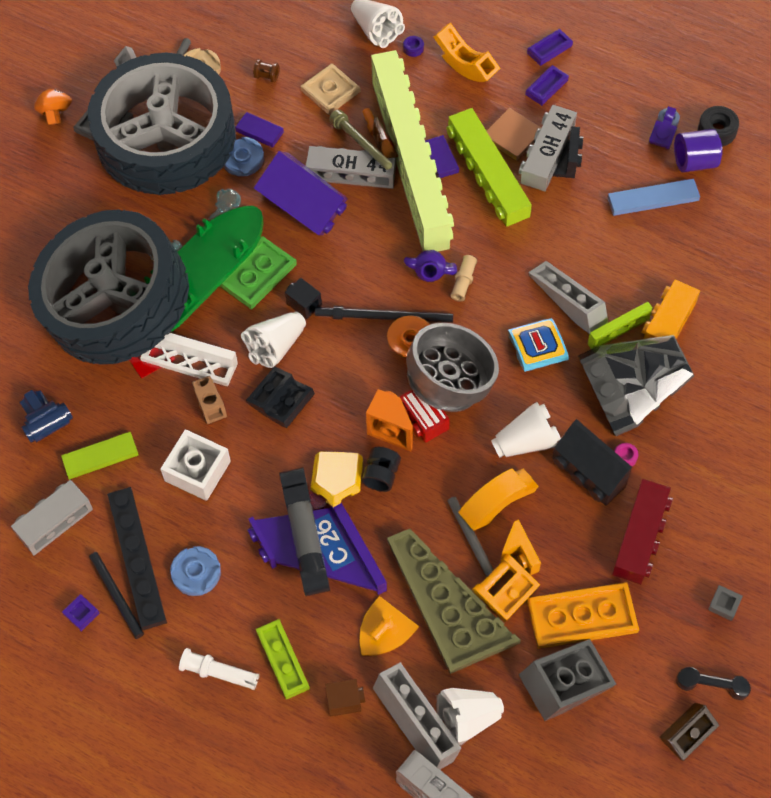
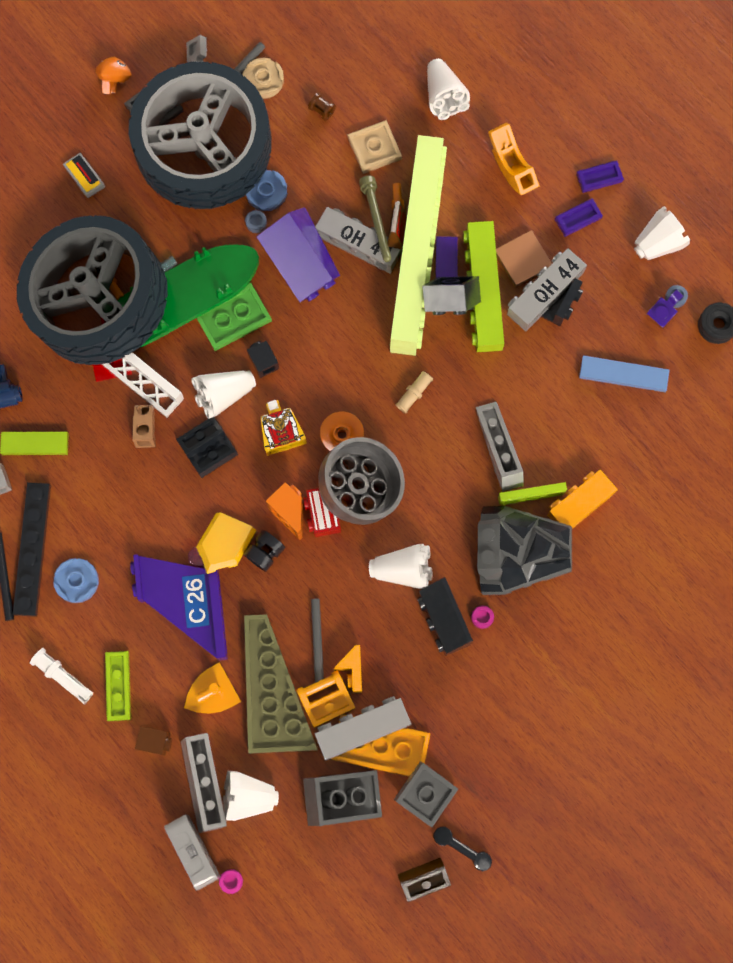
camera: 20 degrees right, 15 degrees up
(58, 199) = (84, 175): none -> slope
(195, 465) = (108, 486): white brick -> none
(227, 200) = (234, 234): clear light blue piece -> none
(244, 185) = (256, 221): none -> sand blue tile
(259, 129) = (292, 167): dark purple tile -> none
(304, 532) = (179, 558): piece -> none
(339, 312) = (291, 384): black bar -> none
(349, 354) = (280, 429): none -> torso
(413, 46) = (471, 128): dark purple tile -> none
(430, 265) = (388, 370): dark purple piece -> none
(464, 173) = (451, 294): none -> brick
(496, 496) = (353, 615): light orange arch -> none
(538, 344) = (452, 483): slope -> none
(558, 599) = (362, 729): none -> light grey brick
(632, 70) = (661, 236): none -> white cone
(641, 532) = (462, 694): dark red brick -> none
(651, 641) = (426, 794): none -> dark grey plate
(698, 150) = (685, 344): dark purple piece -> none
(725, 603) = (504, 784): dark grey plate -> none

